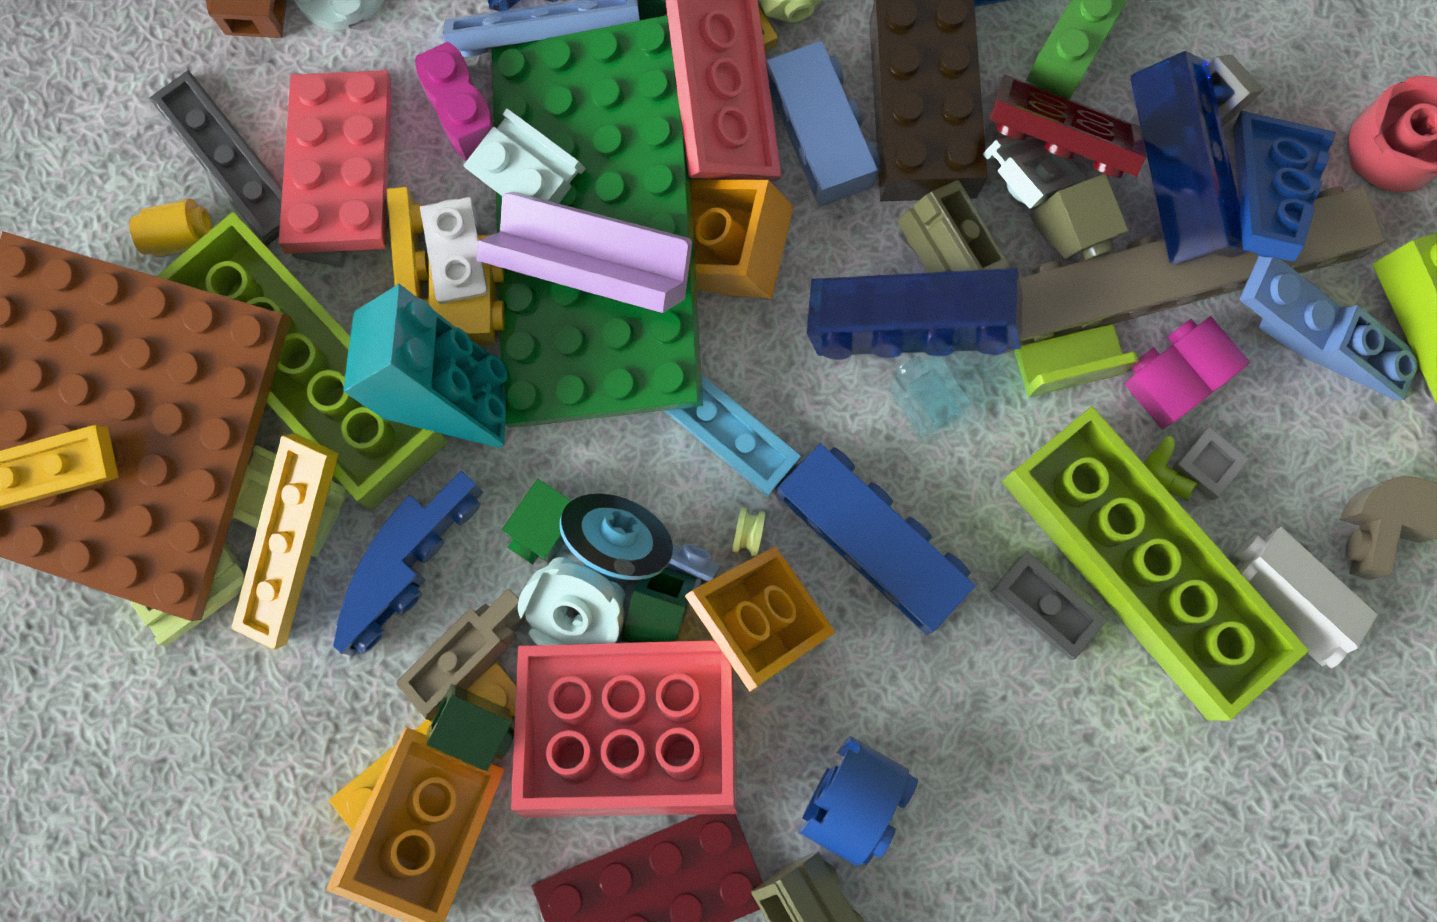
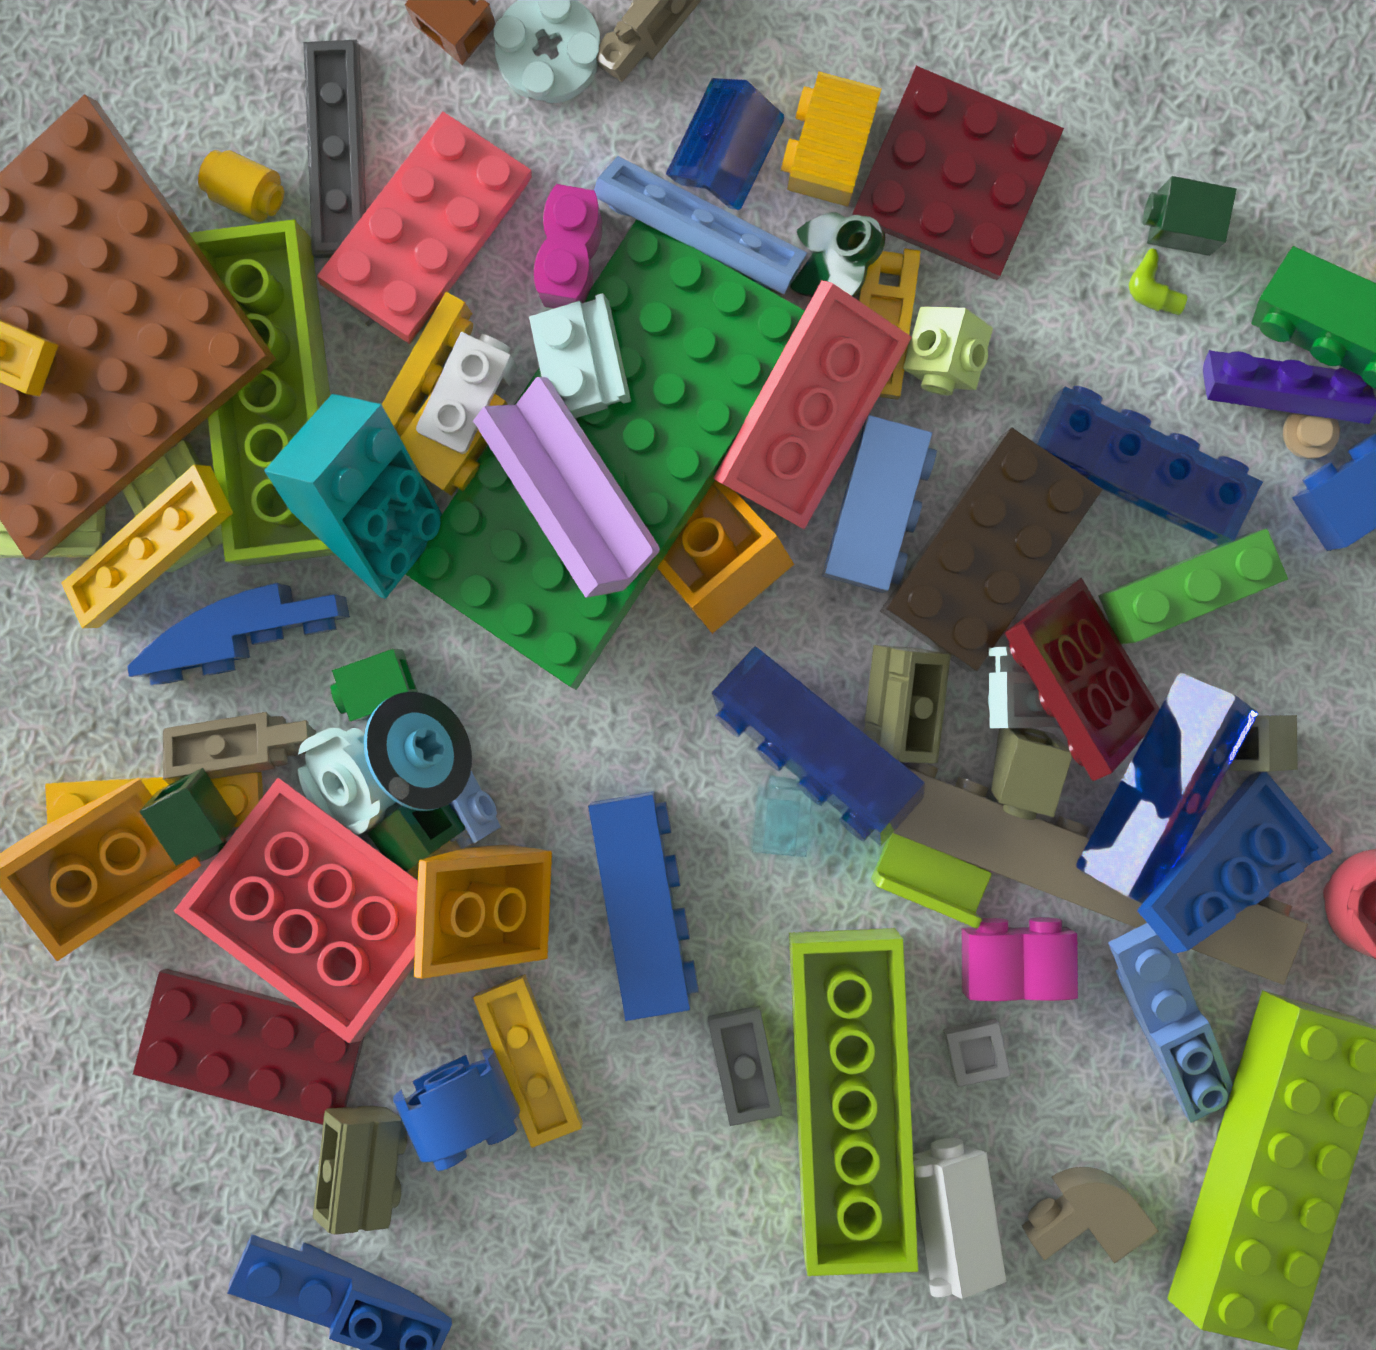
camera: 40 degrees right, 10 degrees up
(737, 438) = (593, 735): medium azure plate -> none
(749, 531) = (542, 819): yellowish green bush -> none
(859, 713) = (528, 1060): none -> yellow plate
(1157, 463) = (929, 1035): lime animal -> none

